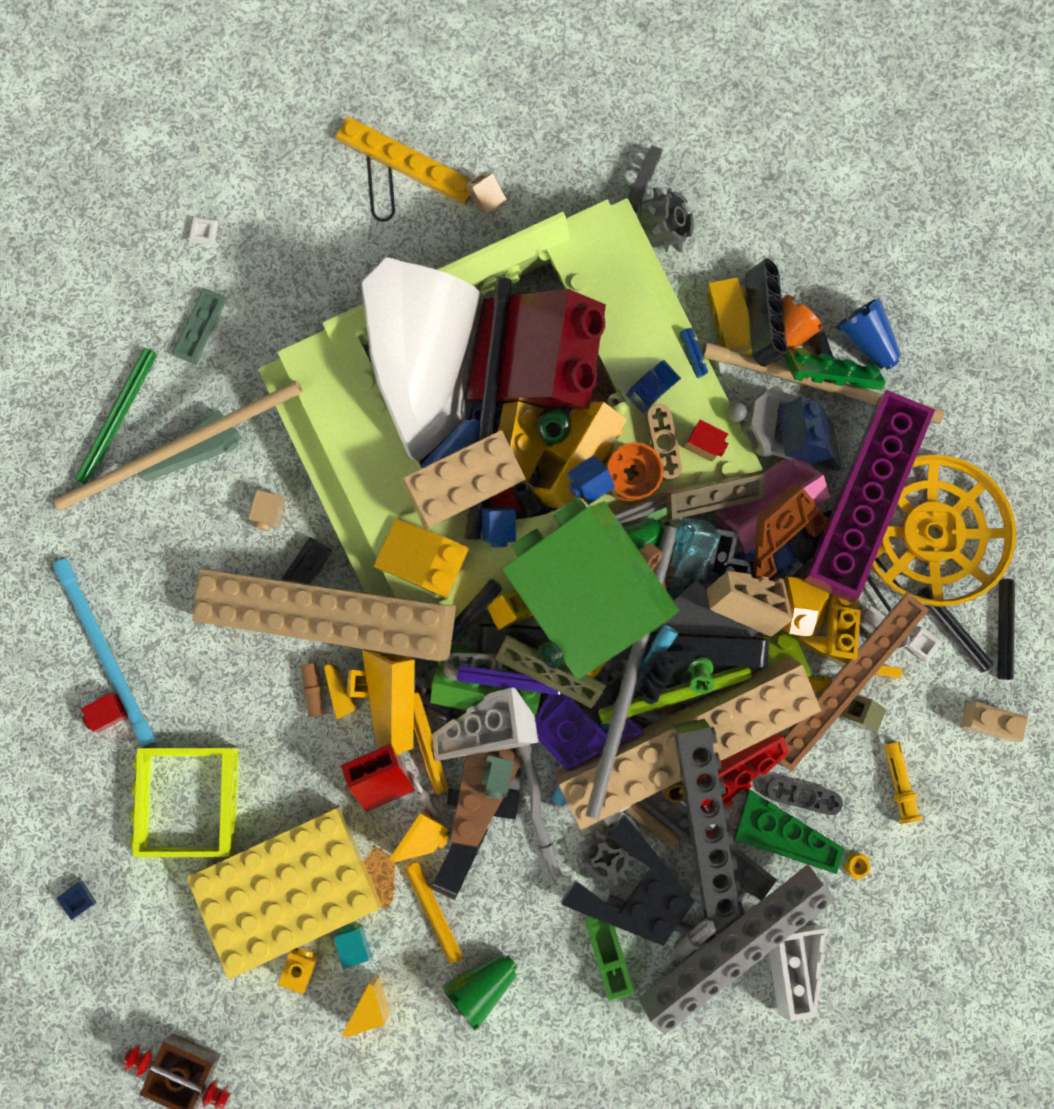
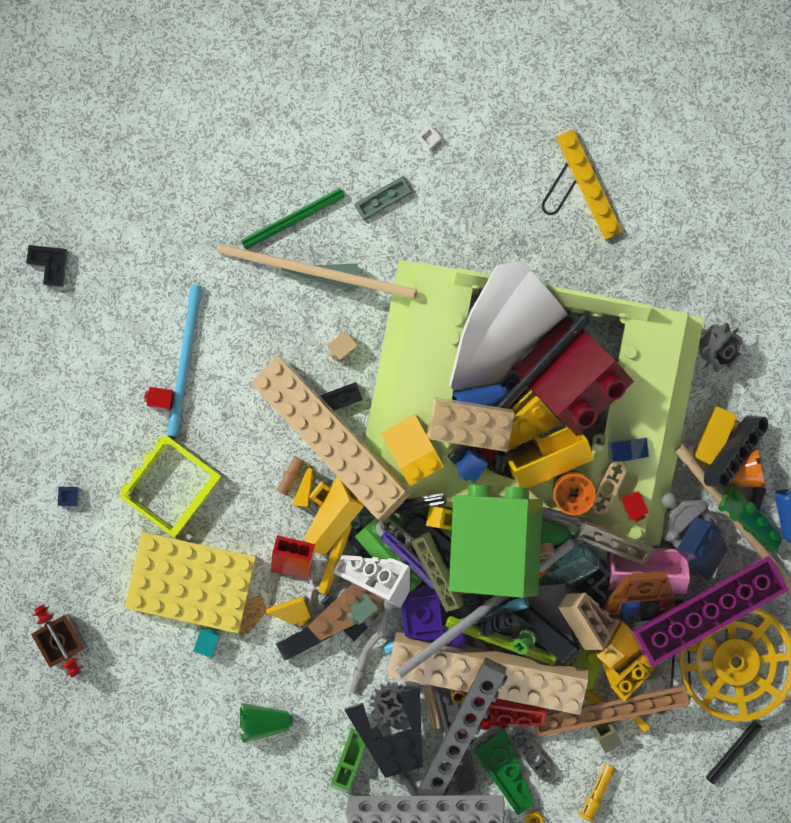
camera: 40 degrees right, 5 degrees up
(292, 977) = (160, 632): yellow brick -> none
(371, 1010) = (191, 685): yellow slope -> none
(434, 913) = (266, 659): yellow axle -> none
(485, 192) = (622, 244): tan brick -> none
(551, 654) = (445, 565): clear green tile -> none
(557, 430) = (549, 429): dark green head -> none
(590, 480) = (543, 481): blue brick -> none
(644, 176) = (729, 307): dark grey beam -> none
(693, 352) = (670, 444): blue axle -> none
(694, 938) = (406, 787): light grey axle -> none
(923, 644) = (676, 723): white tile -> none
(958, 633) = (702, 732): black axle -> none
(994, 722) = (681, 800): tan brick -> none

